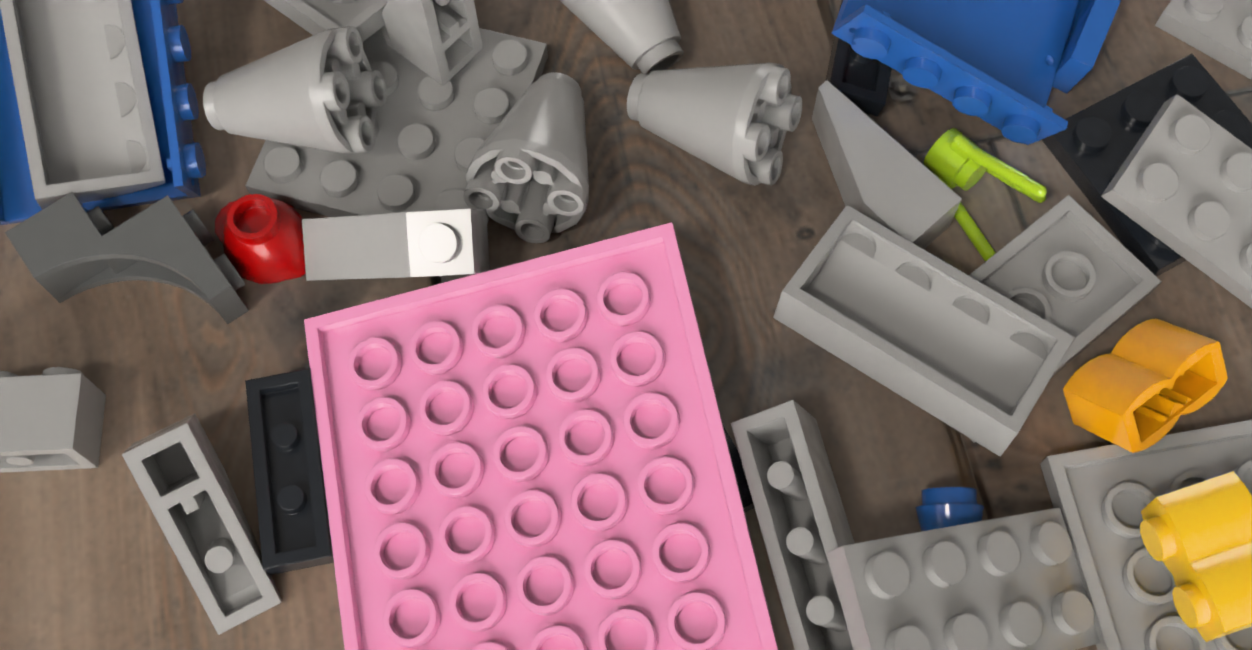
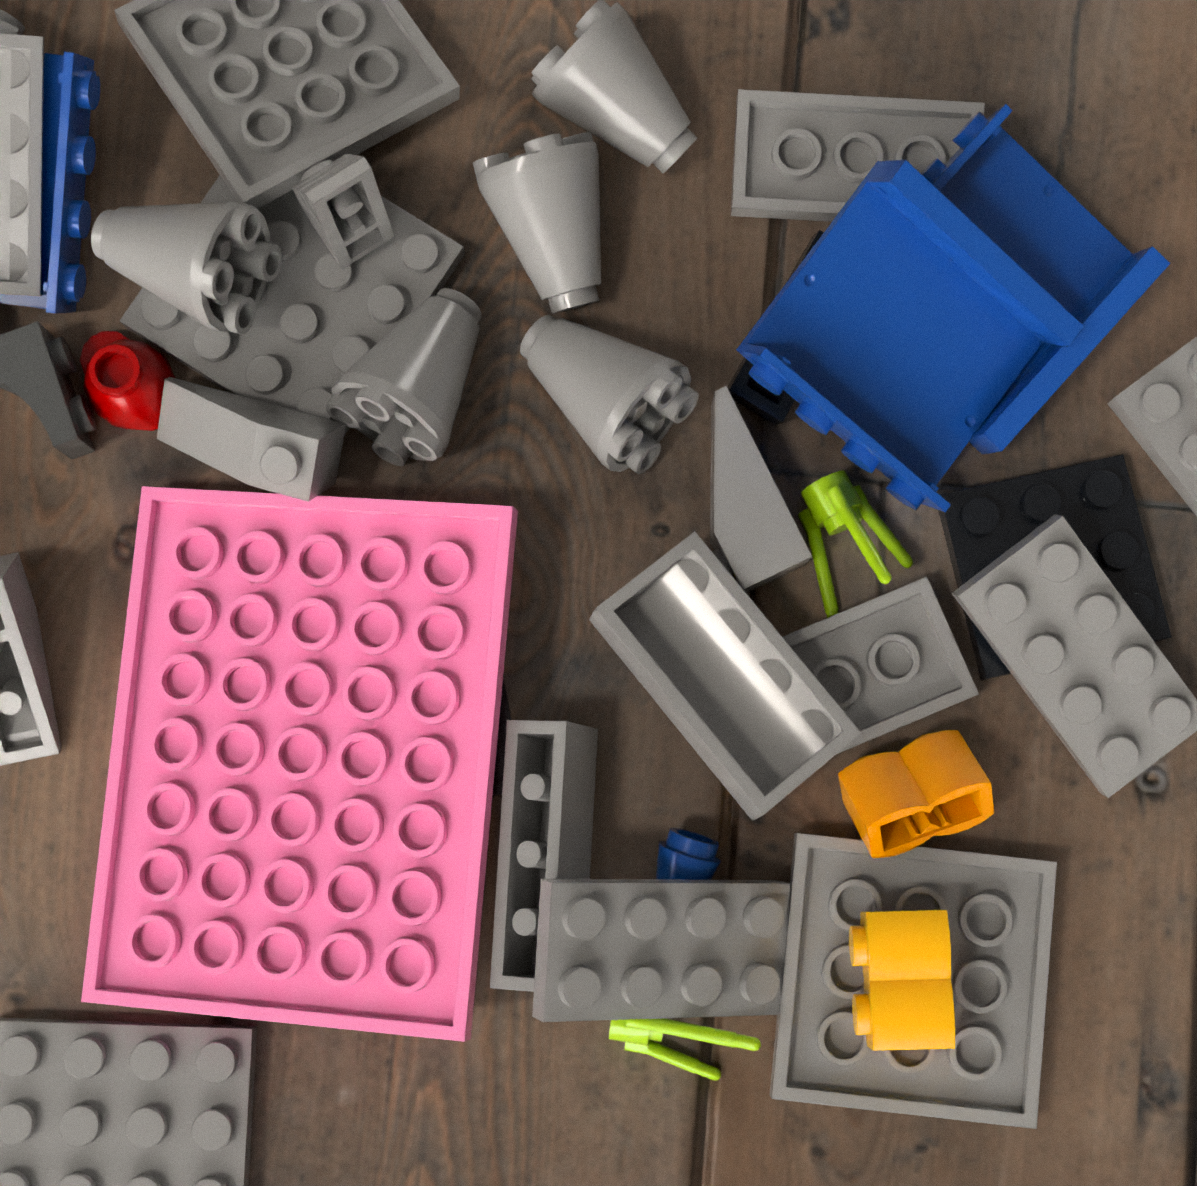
camera: 15 degrees right, 15 degrees up
(288, 473) = (91, 632): black plate -> none

